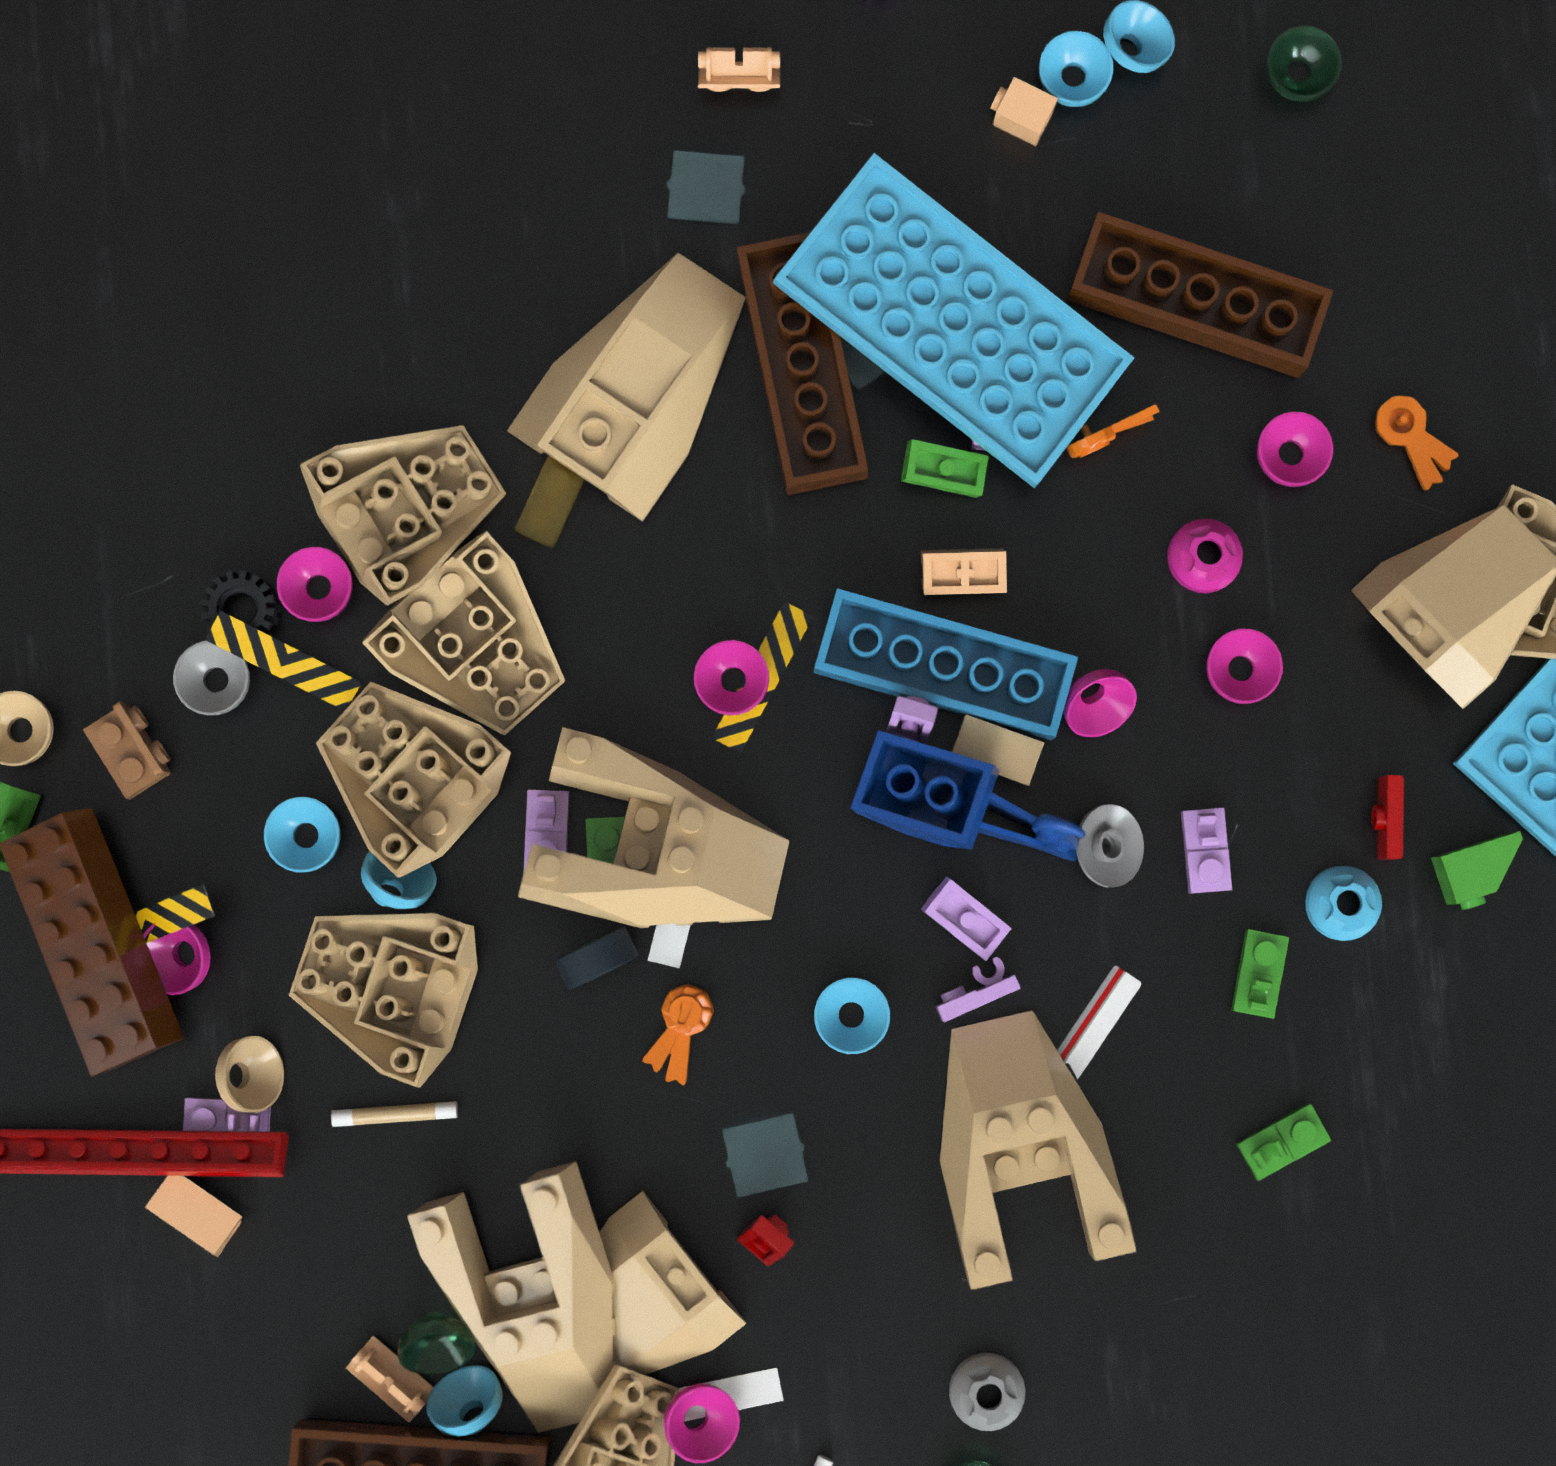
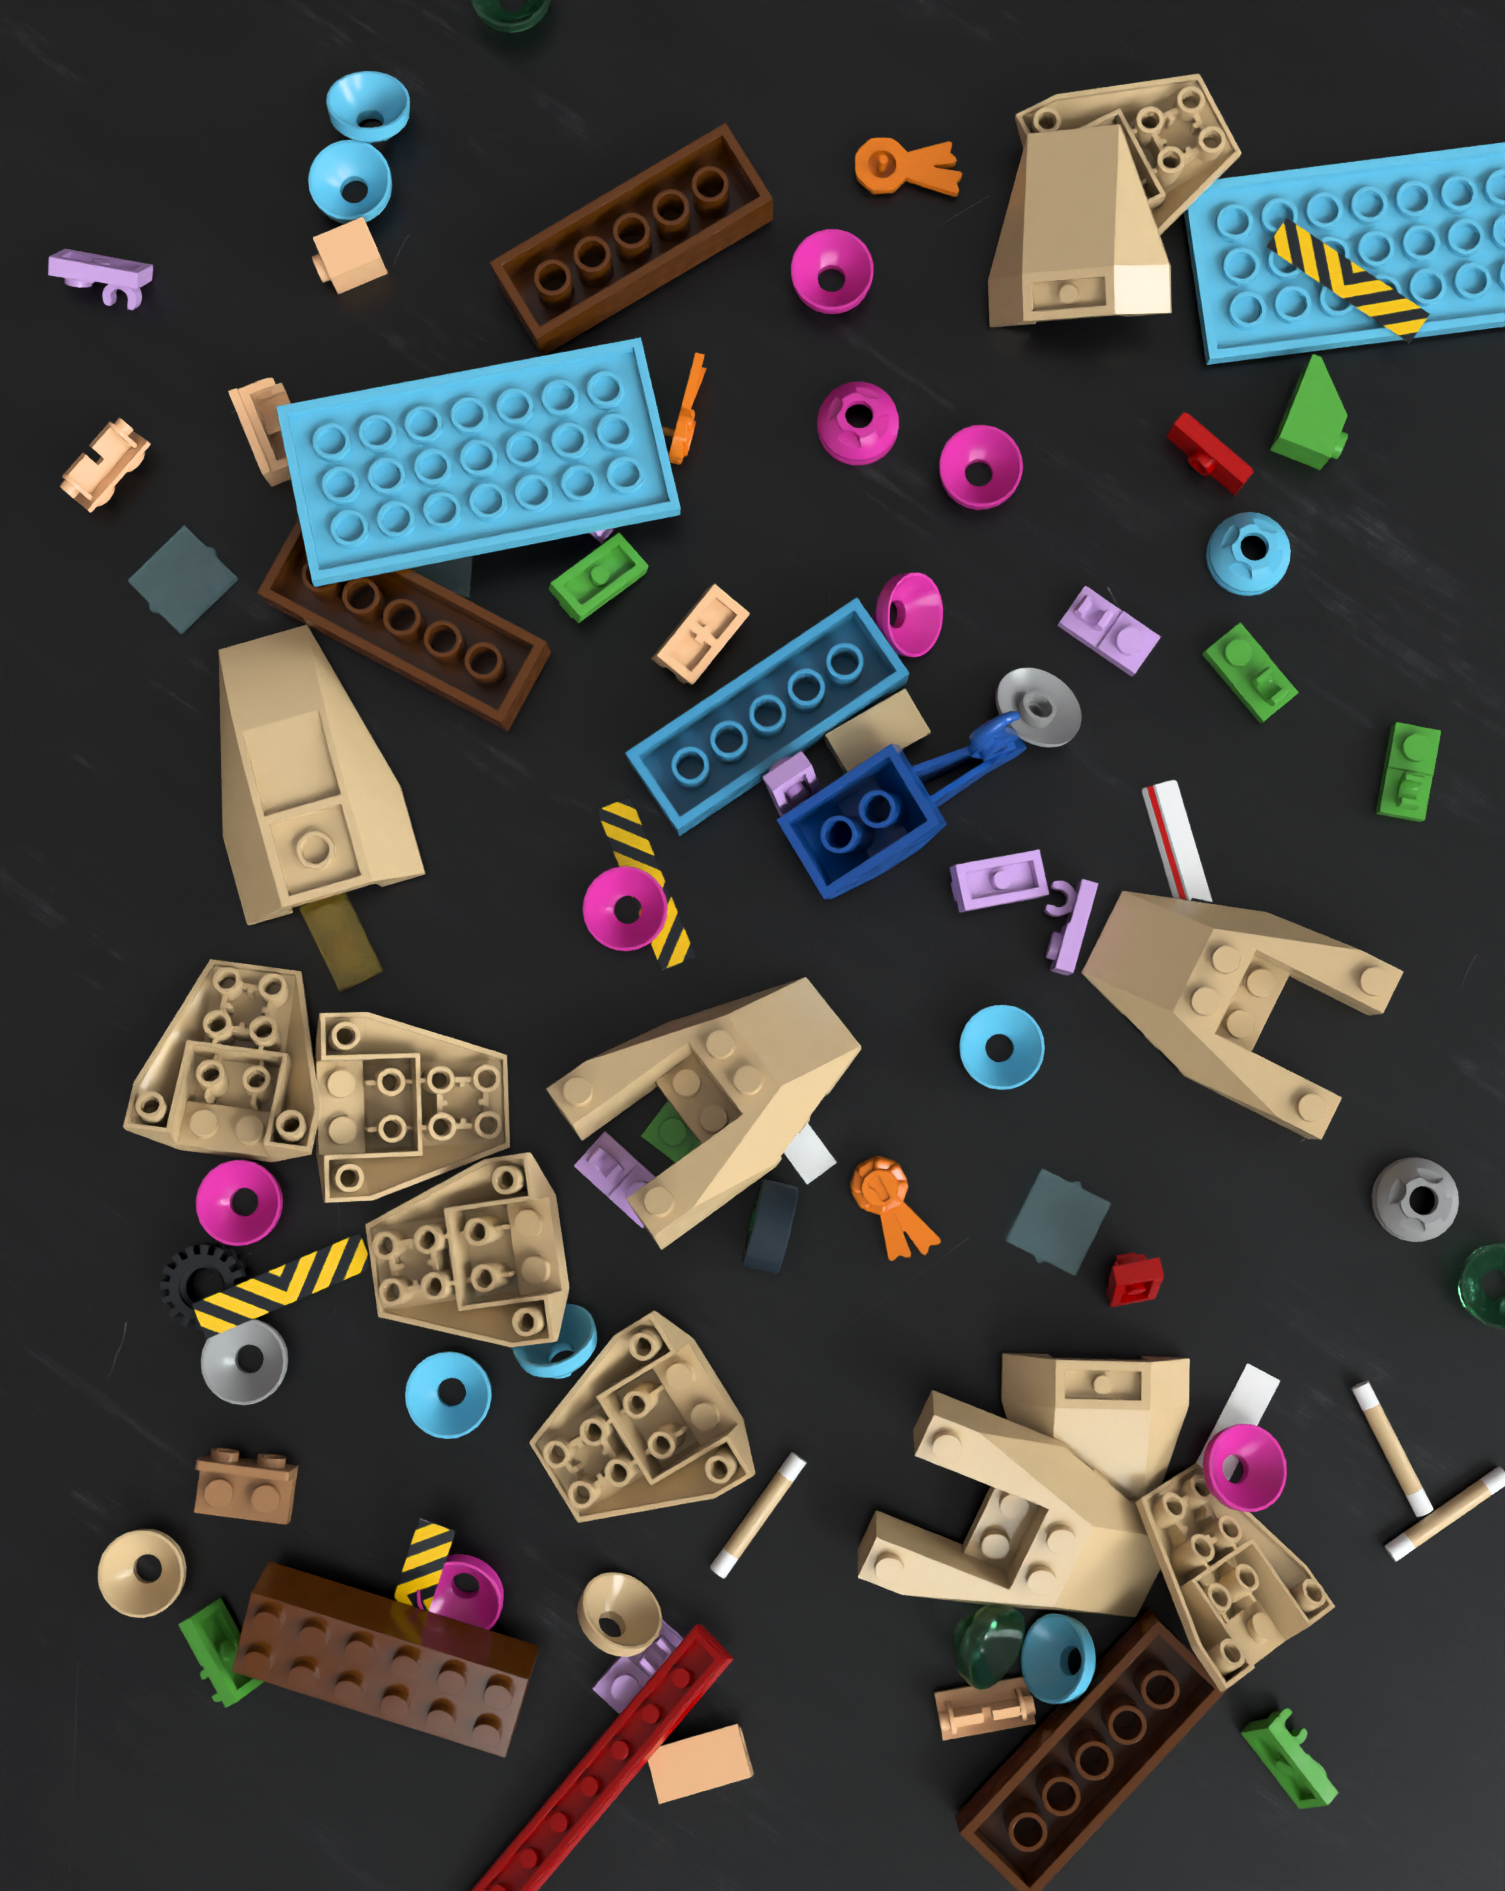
camera: 50 degrees left, 0 degrees up
(860, 143) = (261, 424): none -> light nougat hinge

